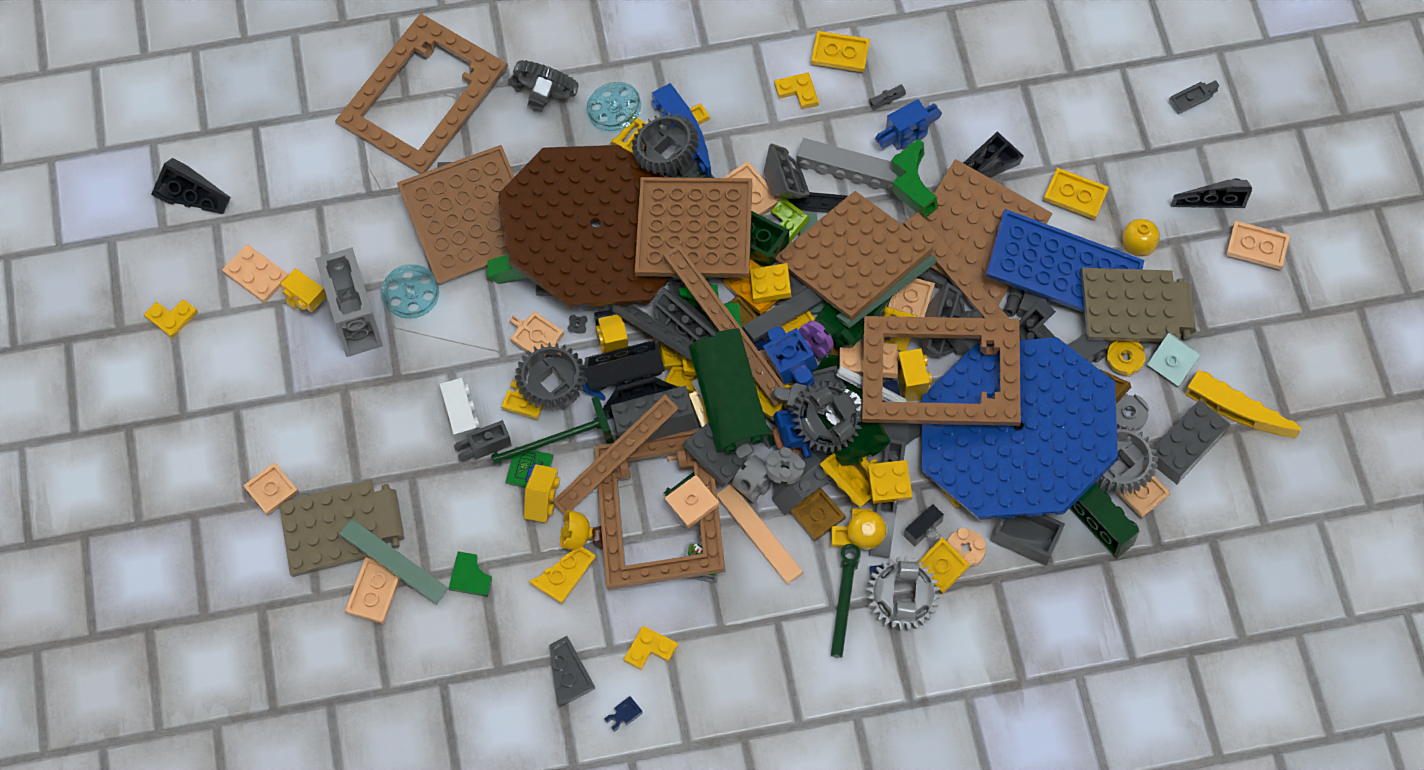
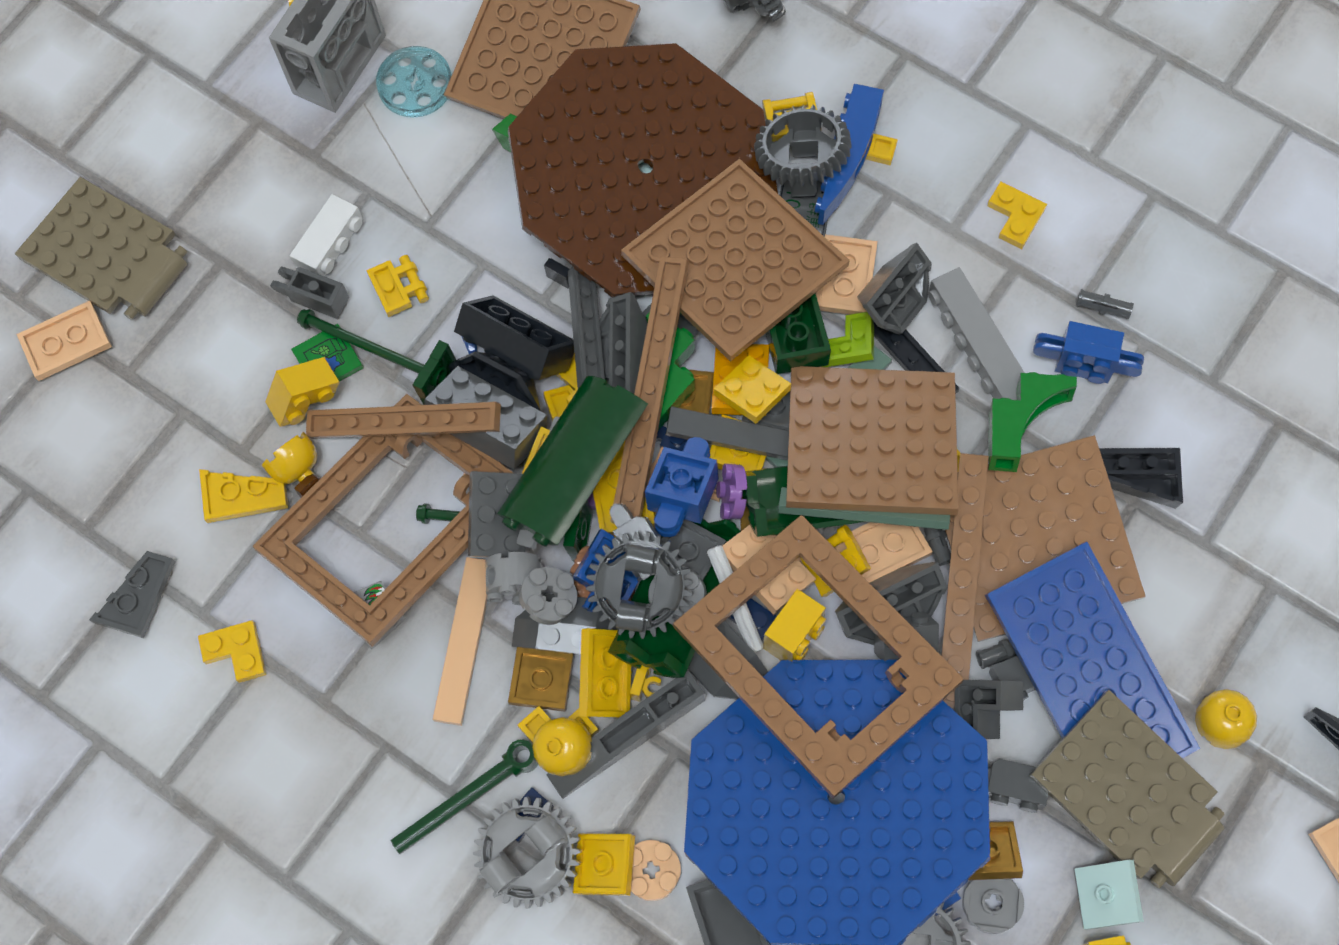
camera: 50 degrees right, 5 degrees up
(270, 488) = (88, 156): light nougat plate -> none
(393, 561) = (102, 328): sand green tile -> none
(468, 577) = (158, 410): green tile -> none
(535, 331) = (477, 232): light nougat plate -> none
(541, 367) = (436, 266): dark grey piece -> none
(581, 328) = (531, 262): dark grey plate -> none
(611, 333) = (543, 296): yellow brick -> none
(616, 111) = (812, 60): clear light blue wedge -> none
(625, 712) = (139, 693): dark blue plate -> none
(692, 501) = (419, 541): light nougat plate -> none
(840, 51) = (1105, 211): yellow plate -> none
(890, 481) = (638, 719): yellow plate -> none
(925, 526) = (632, 803): black piece -> none
(1076, 193) = (1203, 600): yellow plate -> none
(1122, 366) = (1047, 849): yellow plate -> none

